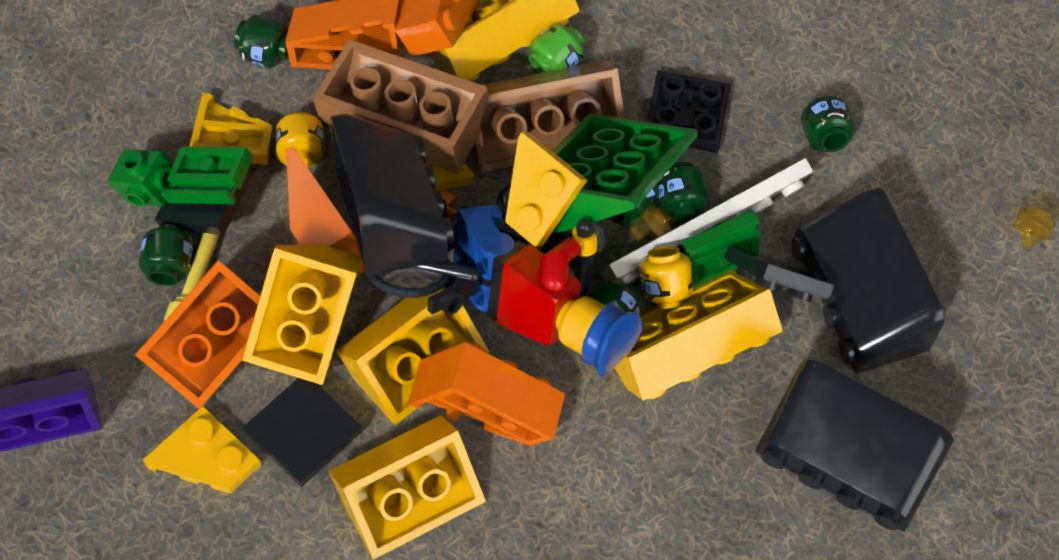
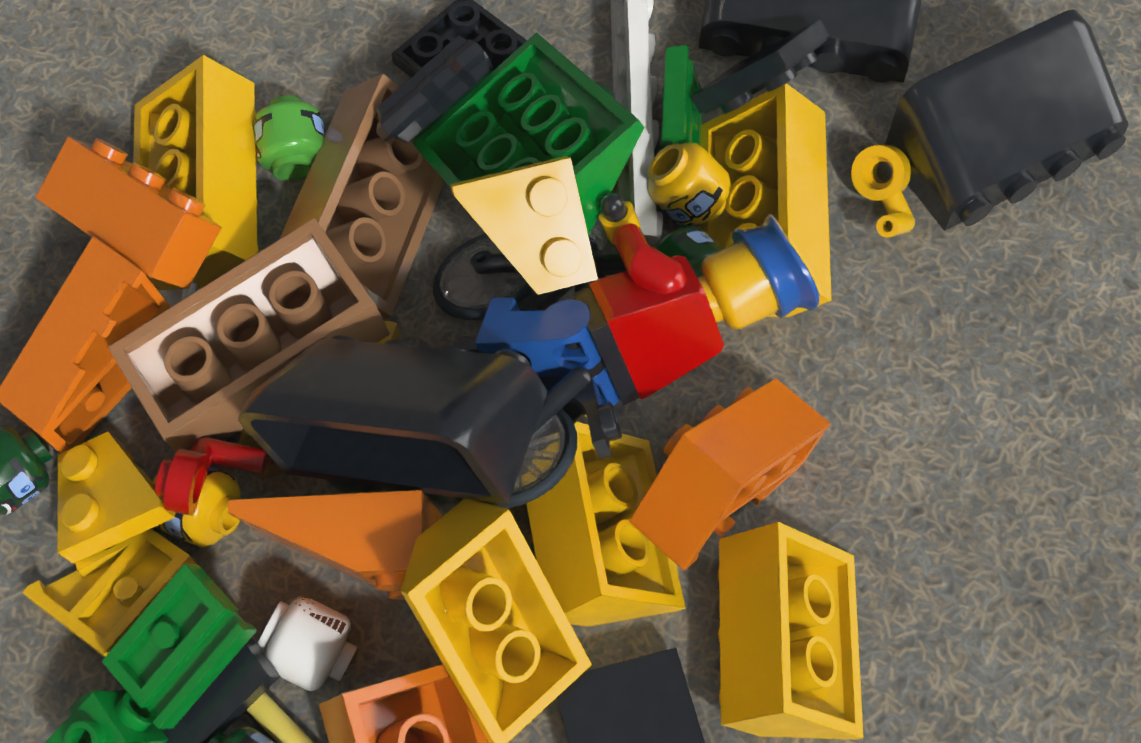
camera: 55 degrees left, 0 degrees up
(252, 239) = (307, 642): none -> white head
(273, 94) = (103, 498): none -> yellow wing
(300, 120) = (183, 477): none -> red plate
(623, 101) = (433, 91): none -> black rock
(761, 391) = (867, 183): none -> yellow plate

